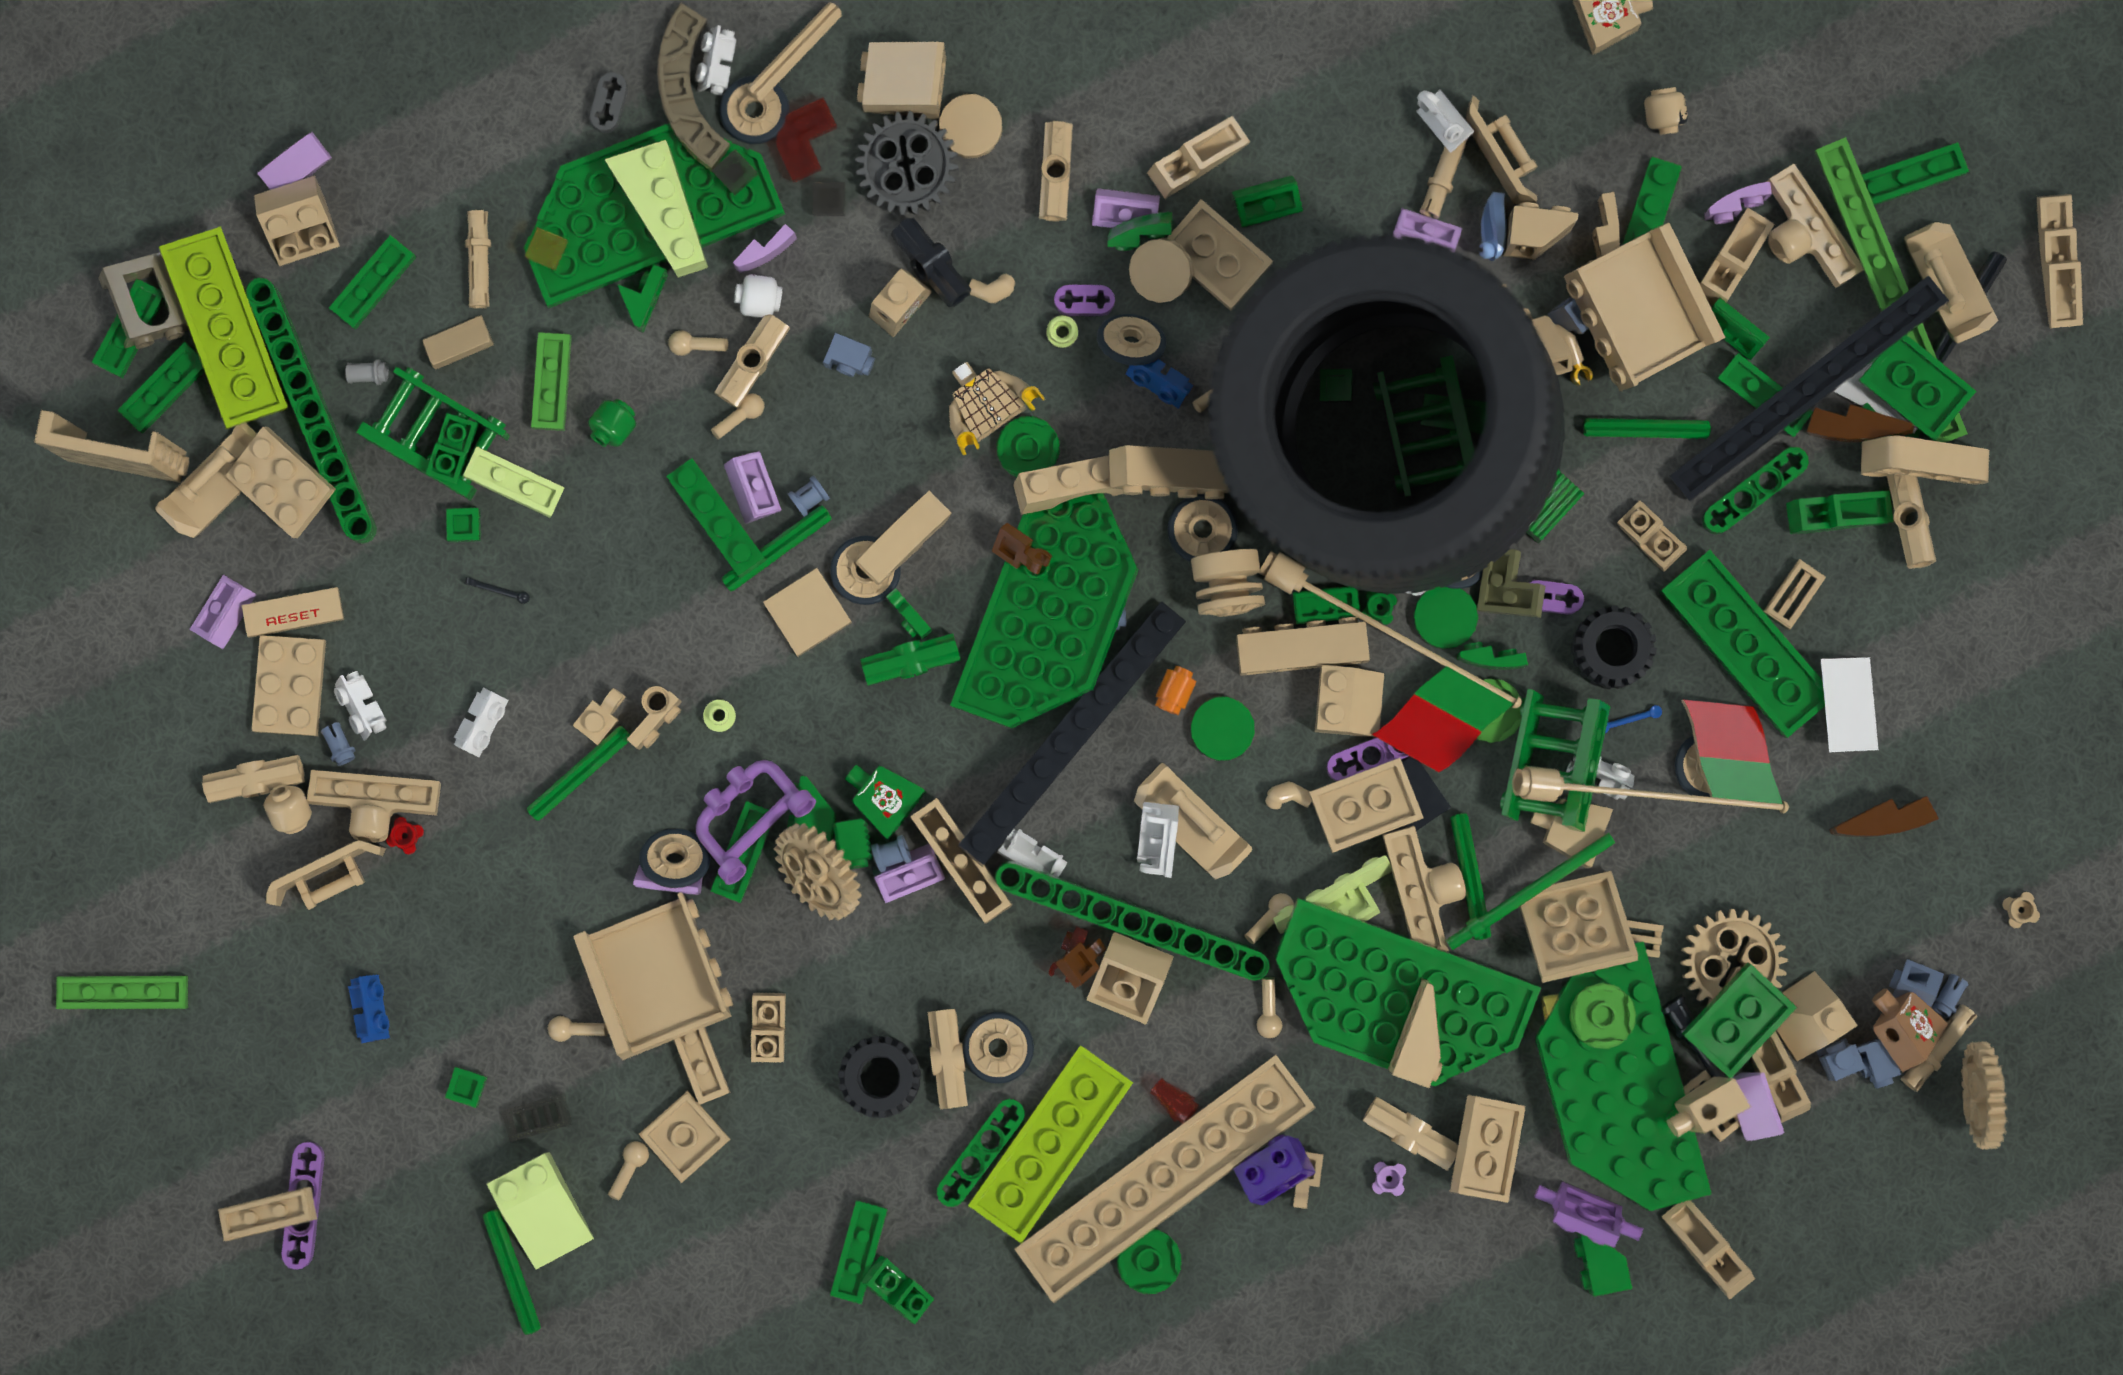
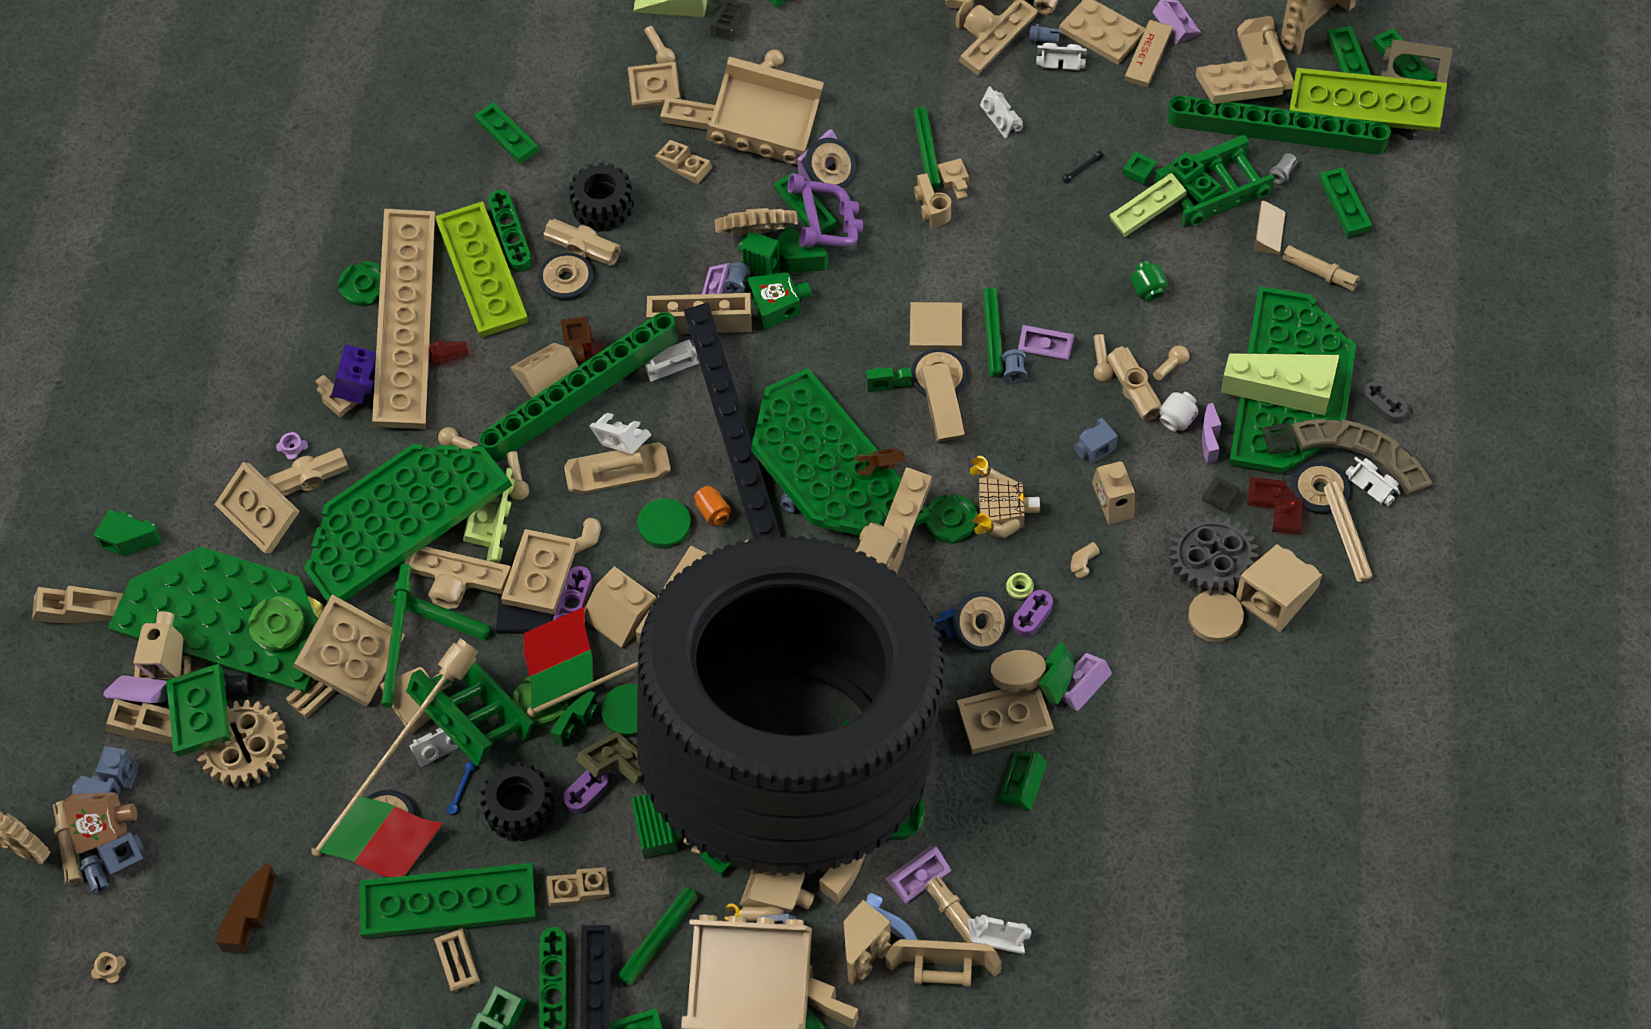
camera: 125 degrees right, 25 degrees down
(295, 163) = (1459, 199): lavender slope -> none
(296, 220) = (1419, 180): tan slope -> none
(402, 826) = (959, 34): red plate -> none
(546, 248) = (1299, 303): clear yellow tile -> none
(551, 381) = (1203, 264): bright green plate -> none
(642, 304) = (1223, 339): green slope -> none
(716, 518) = (1039, 305): green plate -> none
(726, 723) = (904, 245): yellowish green plate -> none
(897, 1290) = (467, 140): green slope -> none
(910, 659) = (856, 363): green piece -> none
(931, 262) = (1129, 528): black piece -> none
(1055, 152) = (1129, 637): tan piece -> none
(1198, 157) = (1088, 749): tan slope -> none
(1418, 1047) = (355, 501): tan slope -> none
(1588, 1214) = (162, 537): medium lavender plate -> none
(1816, 1020) = (162, 774): tan slope -> none
(1849, 704) = (347, 942): white sticker -> none

